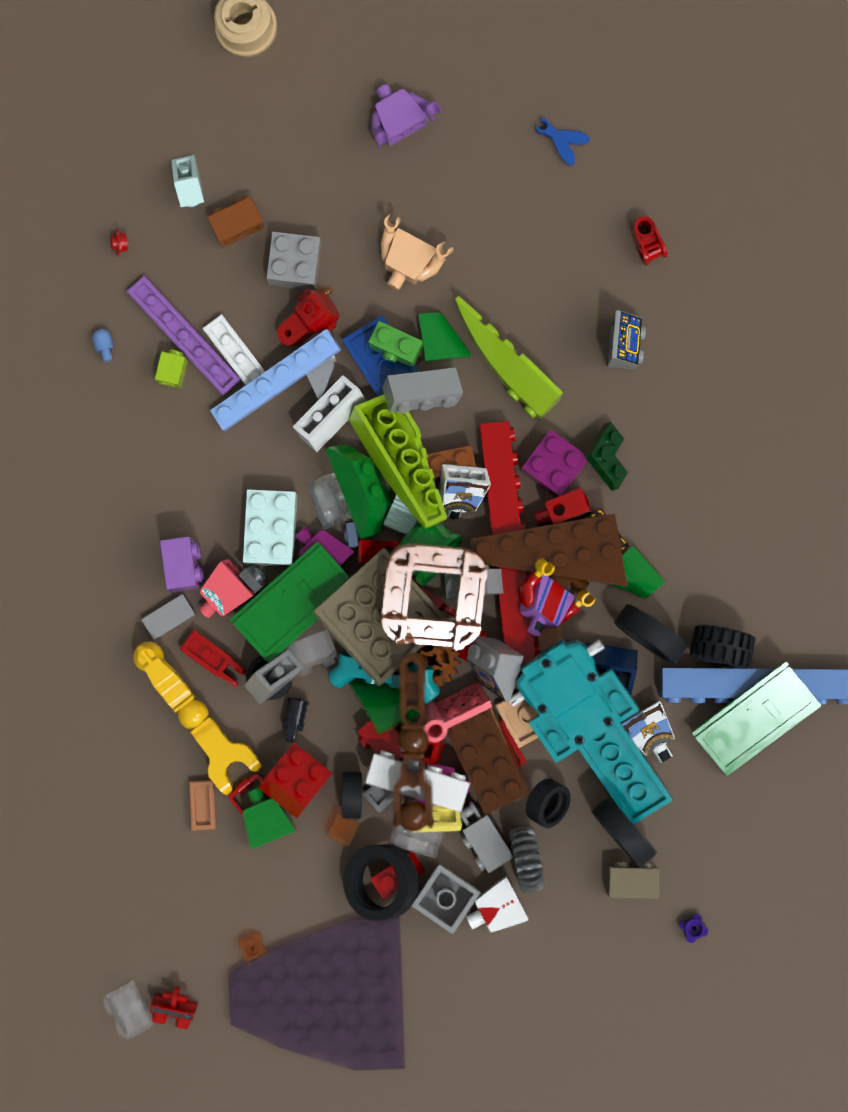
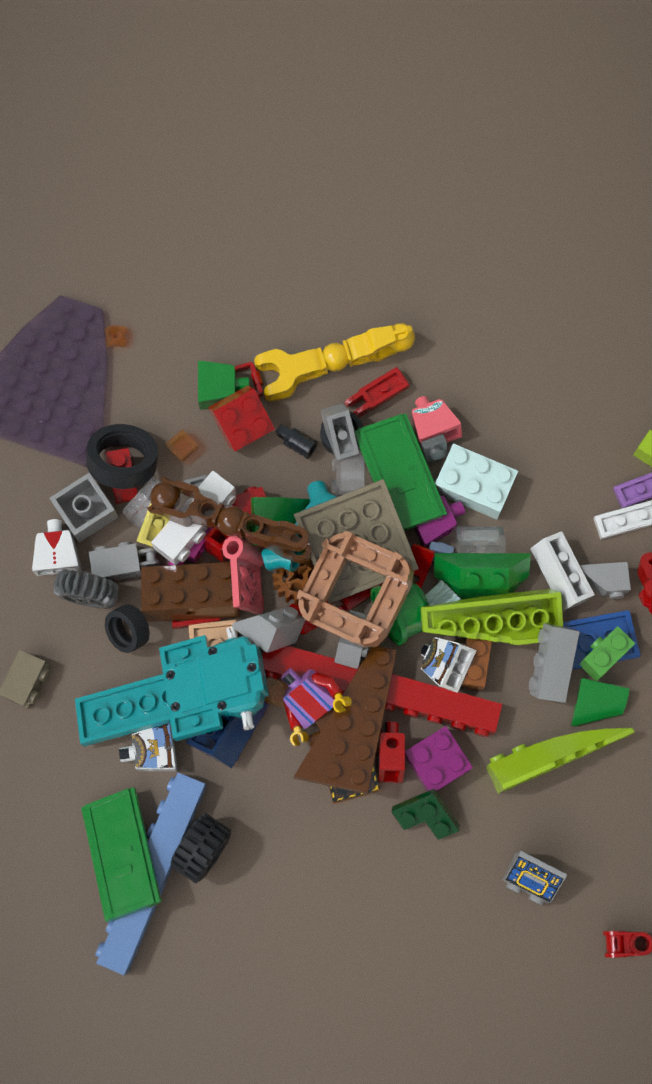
camera: 110 degrees right, 10 degrees down
(129, 1010) = (108, 220): clear brick -> none
(168, 617) = (429, 370): light grey tile -> none
(175, 1006) = (95, 255): red hips -> none
(181, 564) = (471, 392): medium lavender brick -> none
(202, 805) = (253, 339): nougat tile -> none
(276, 380) = (611, 536): light blue plate -> none
(351, 795) = (207, 459): black tyre -> none
(624, 832) = (69, 682): black tyre -> none
(640, 575) = (302, 799): green slope -> none
(650, 634) = (240, 782): black tyre -> none

